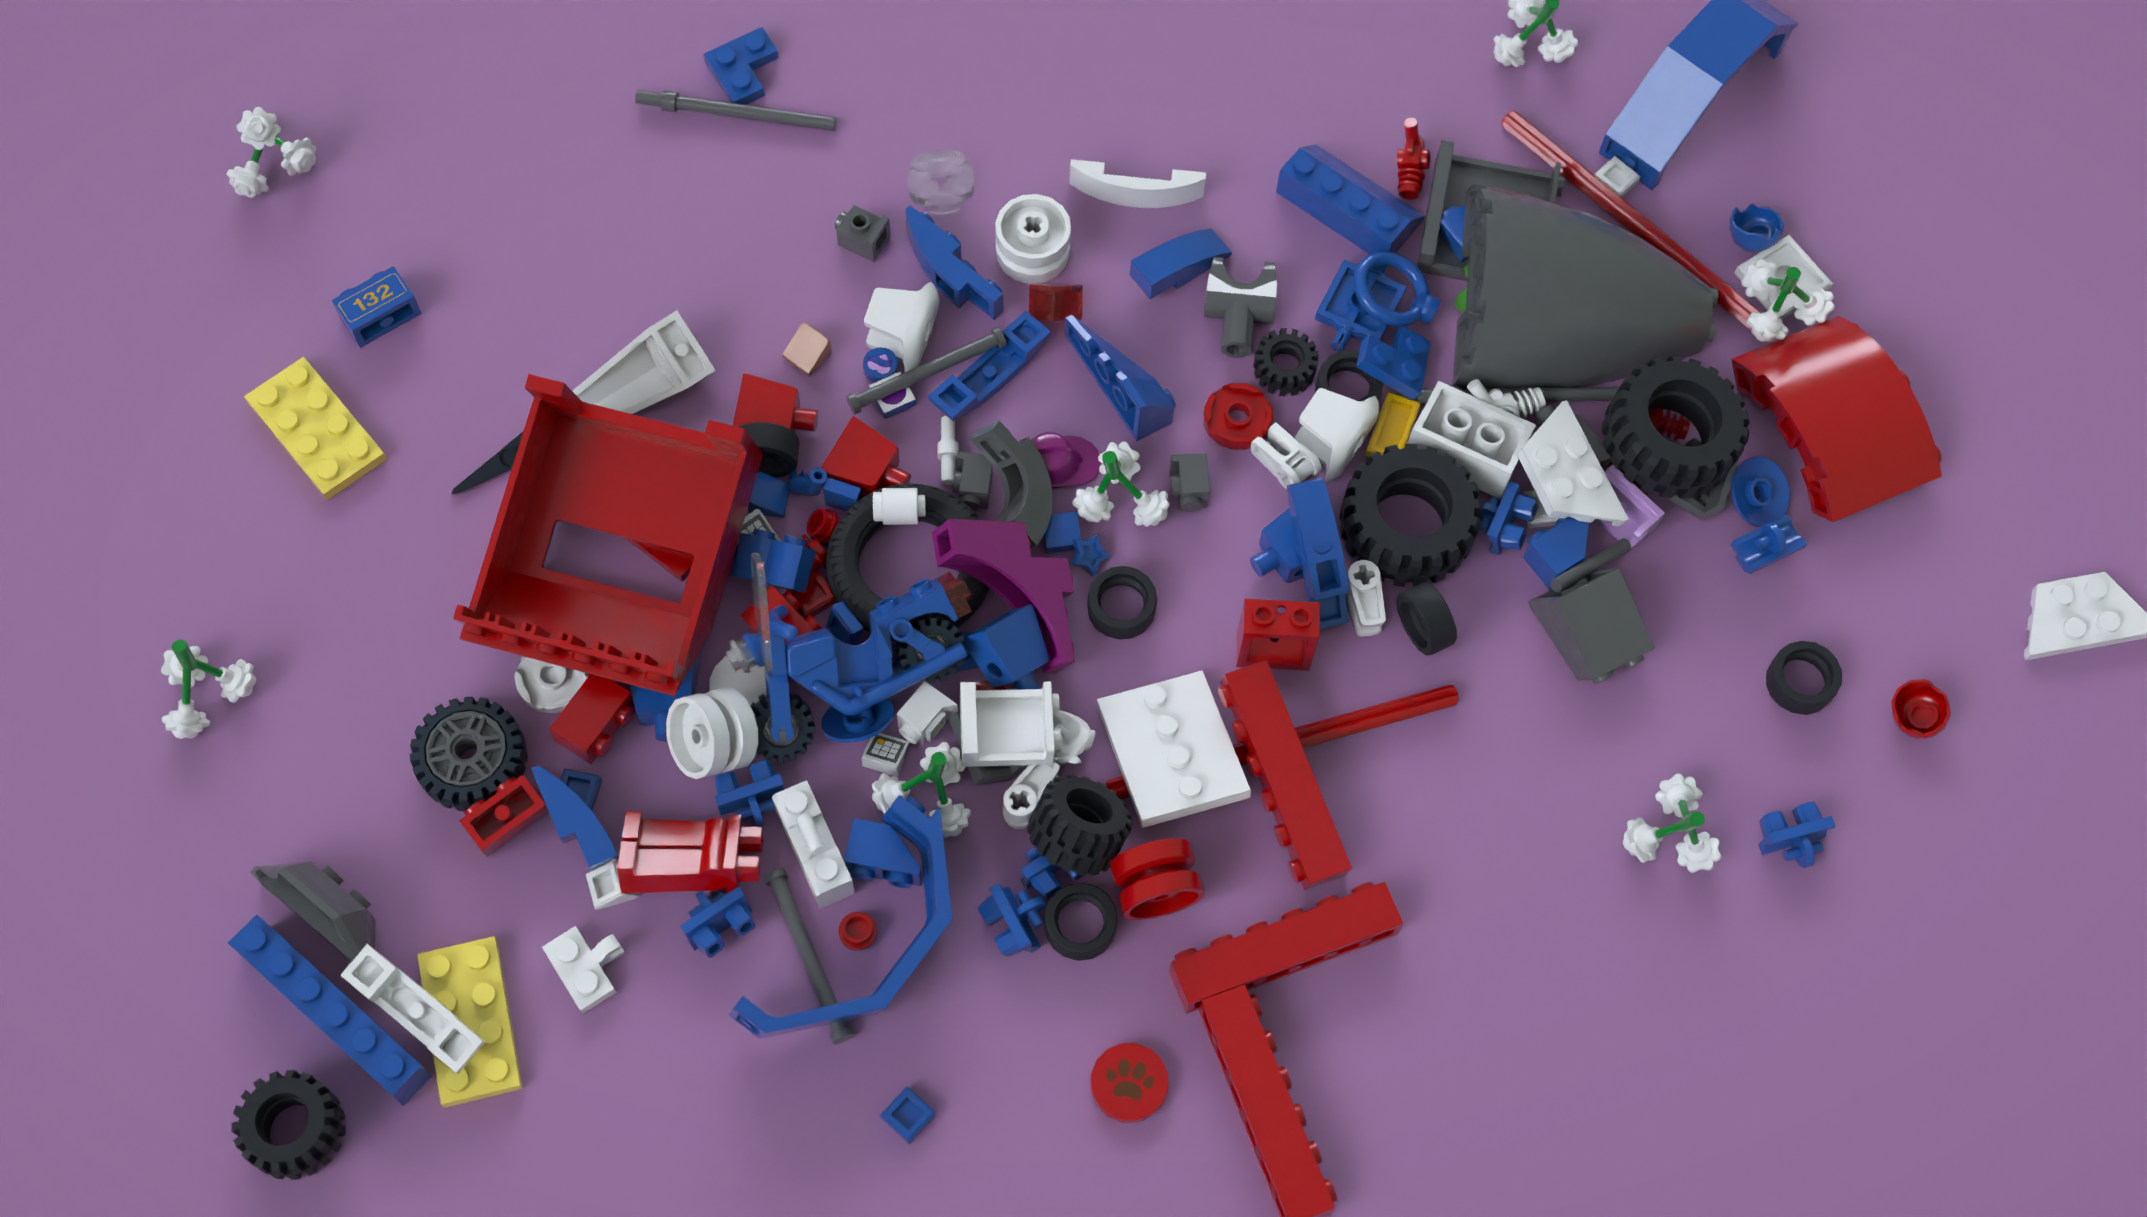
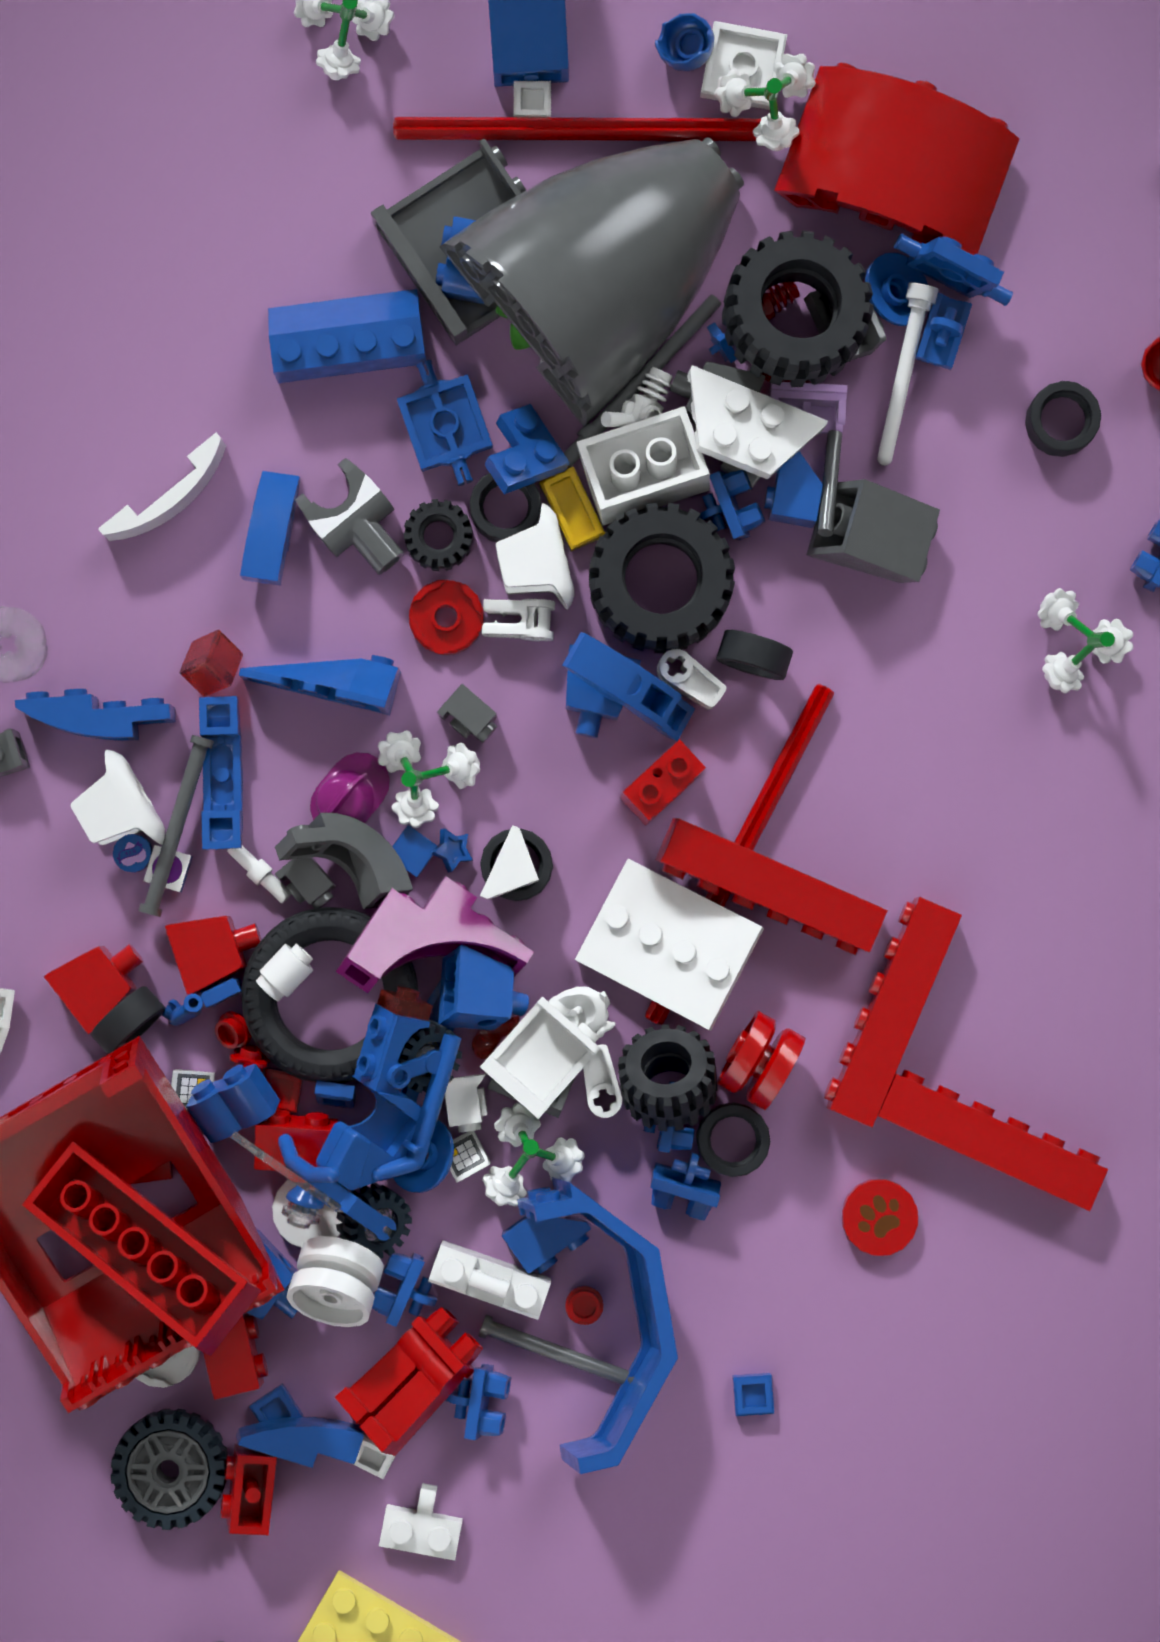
camera: 50 degrees left, 20 degrees up
(617, 565) = (141, 1248): none -> red brick
(769, 495) = (167, 1045): blue slope -> none
(807, 349) = (63, 899): slope -> none
(1032, 238) = (116, 624): white wheel -> none
(1116, 588) = (512, 868): none -> white slope
(1412, 162) = (362, 249): red piece -> none
(1423, 305) = (495, 378): blue piece -> none
(1599, 417) = (720, 343): none -> blue piece
(1772, 507) = (920, 301): none -> white piece
(1815, 506) = (955, 268): none -> blue plate

